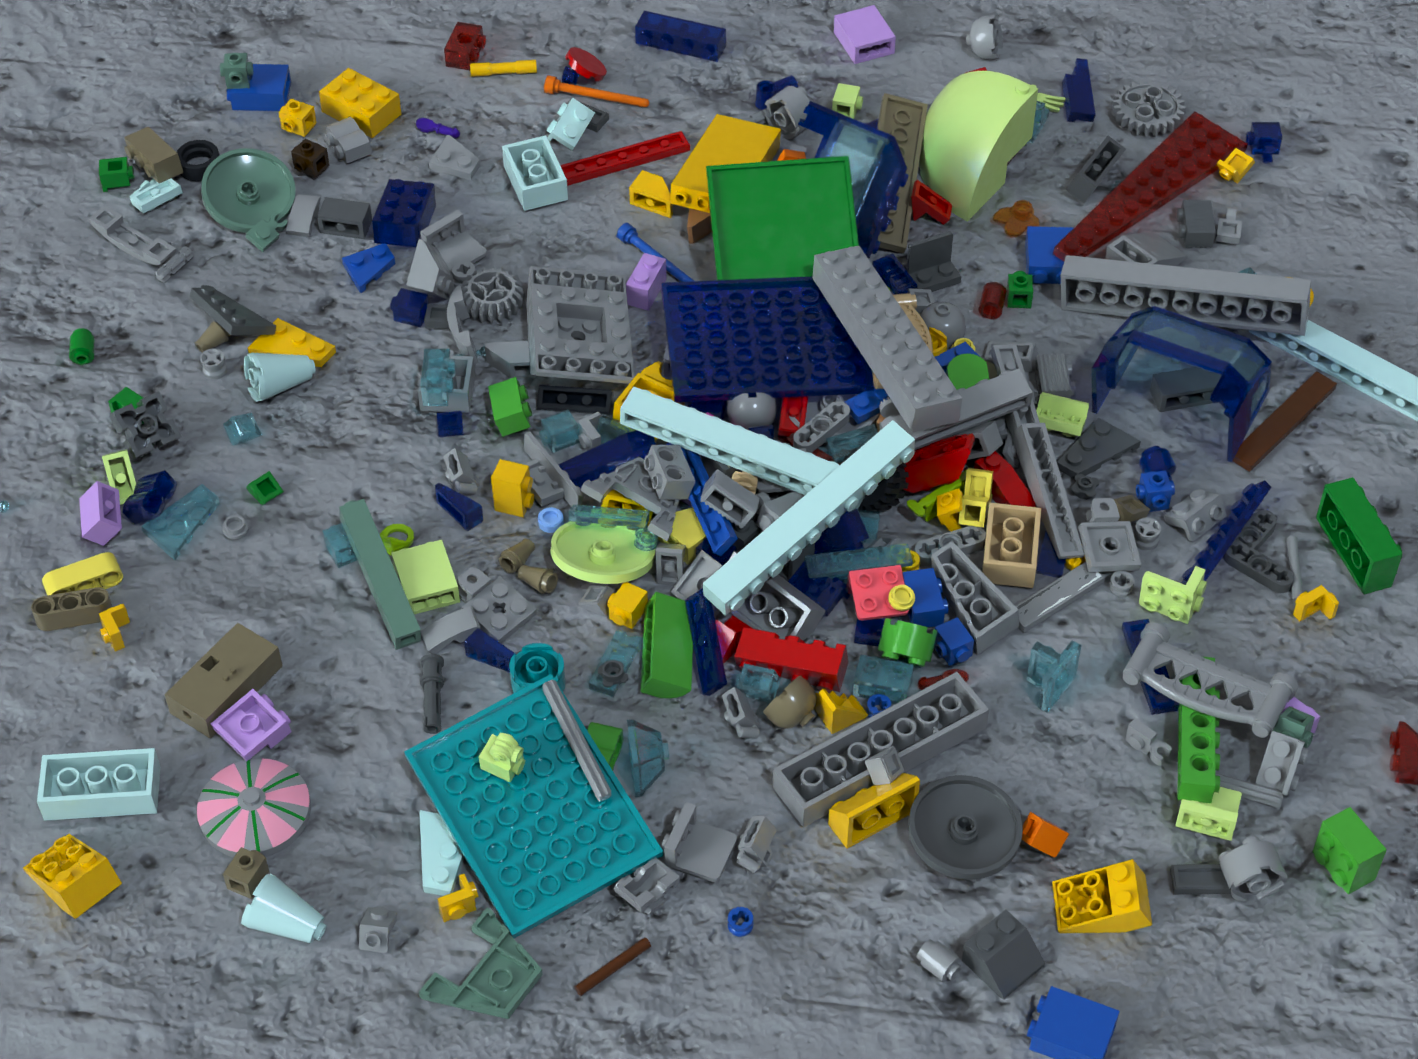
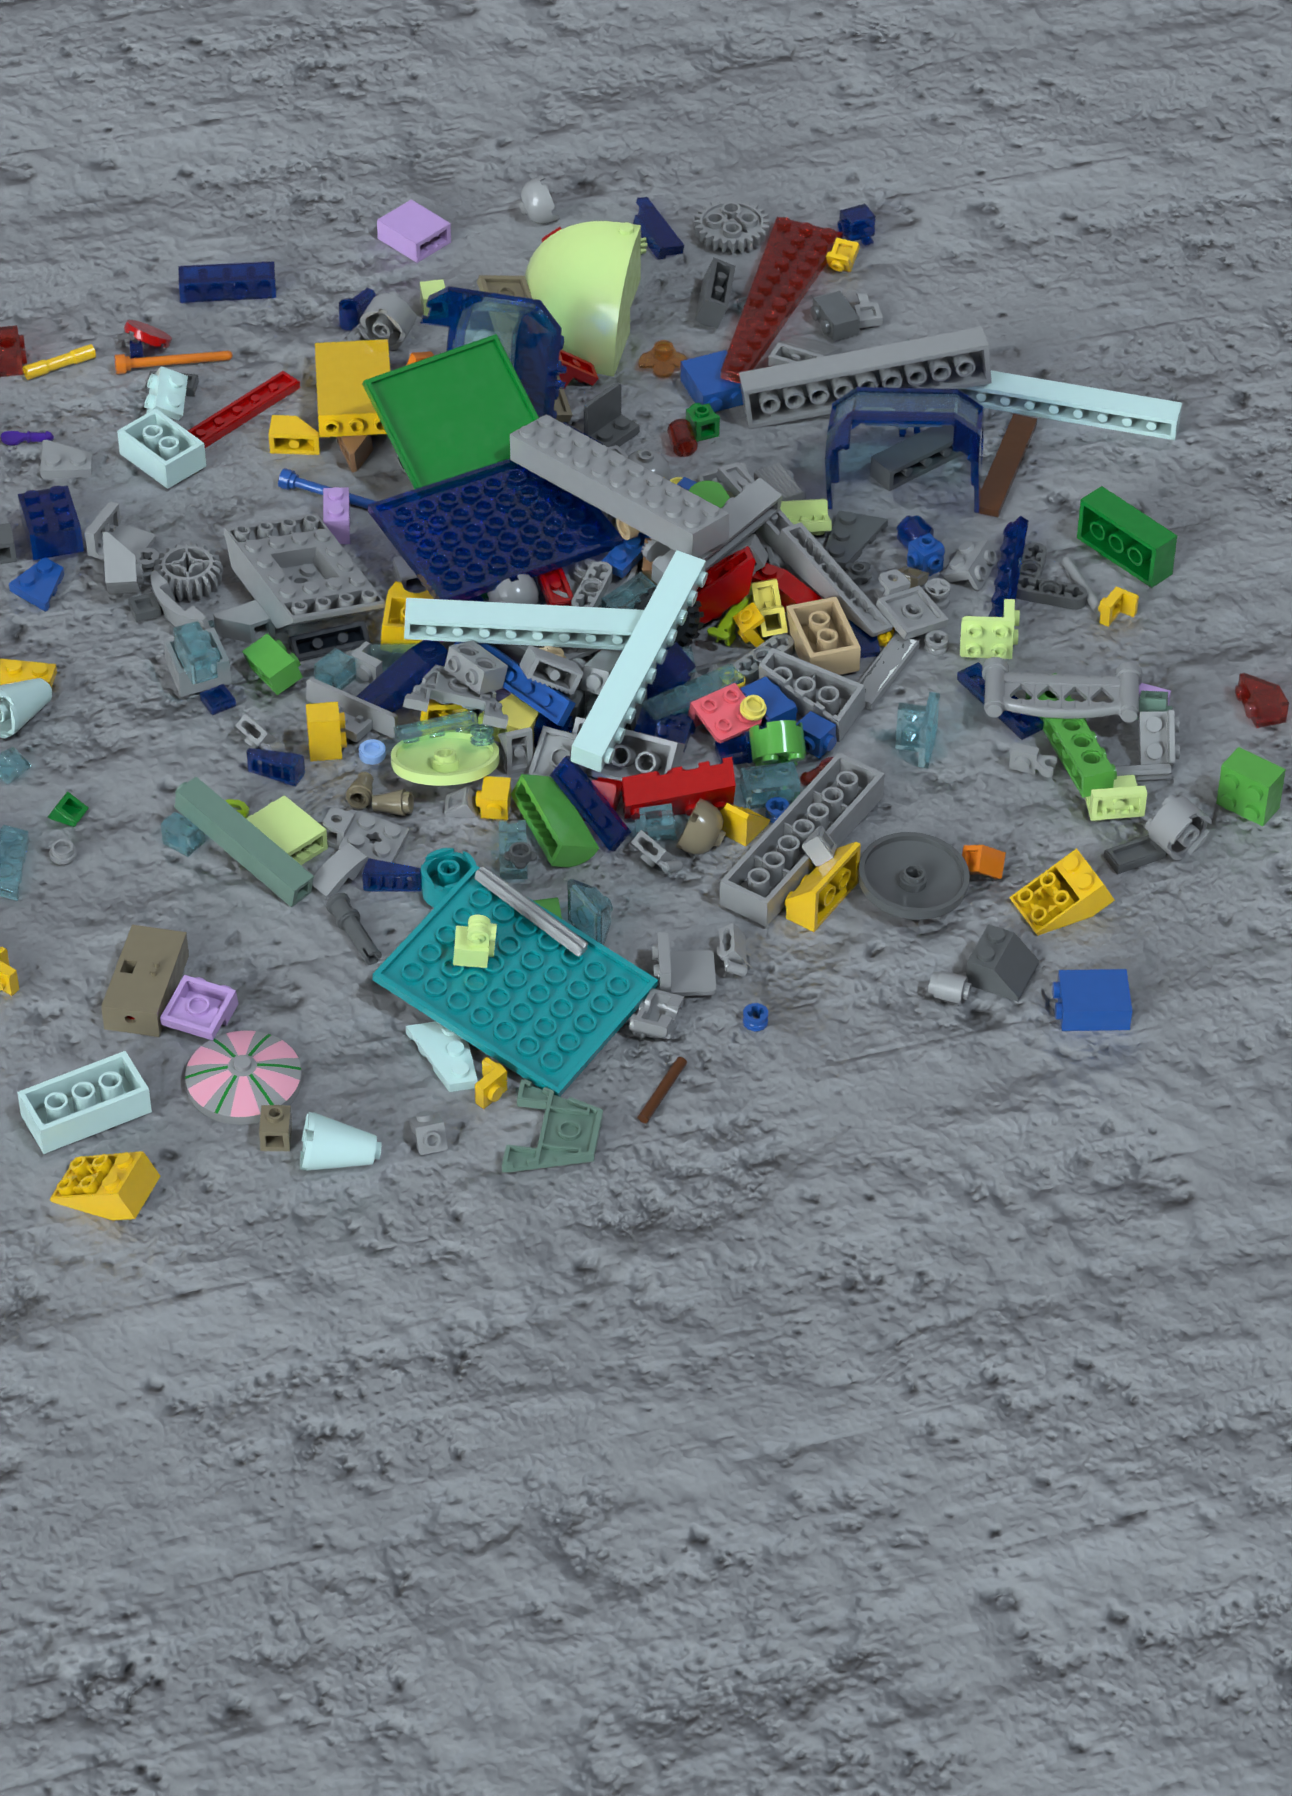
camera: 25 degrees left, 5 degrees down
(409, 307) = (111, 607): clear blue brick -> none

